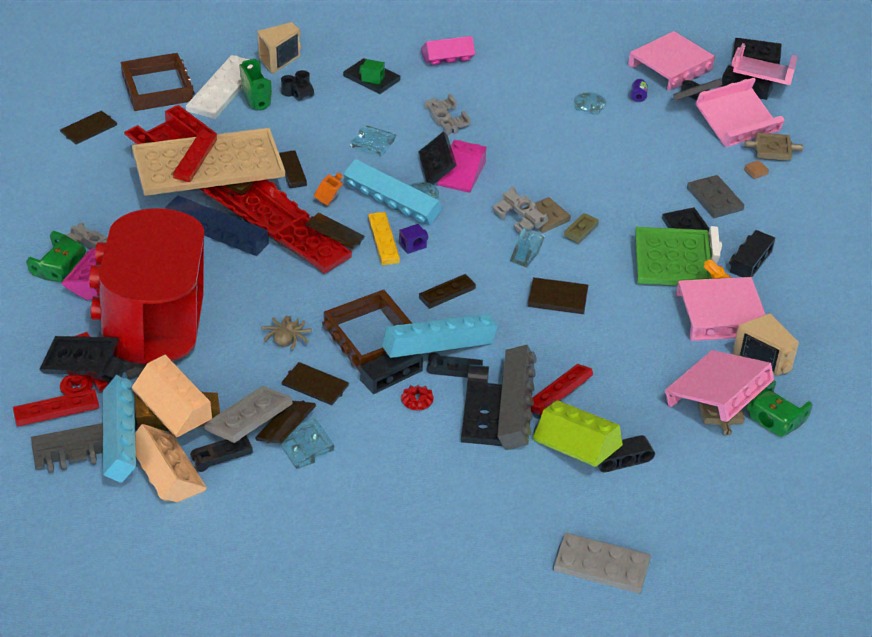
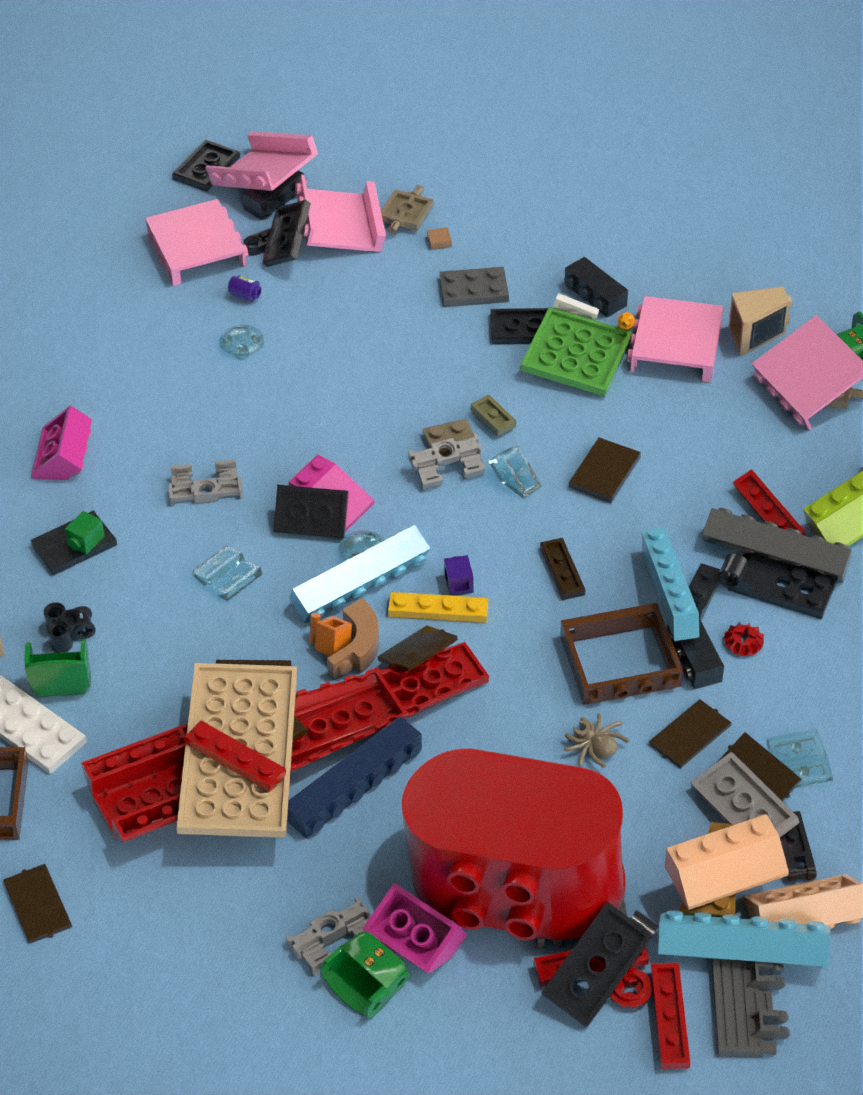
camera: 70 degrees left, 5 degrees up
(336, 208) = (363, 648): none -> medium nougat arch

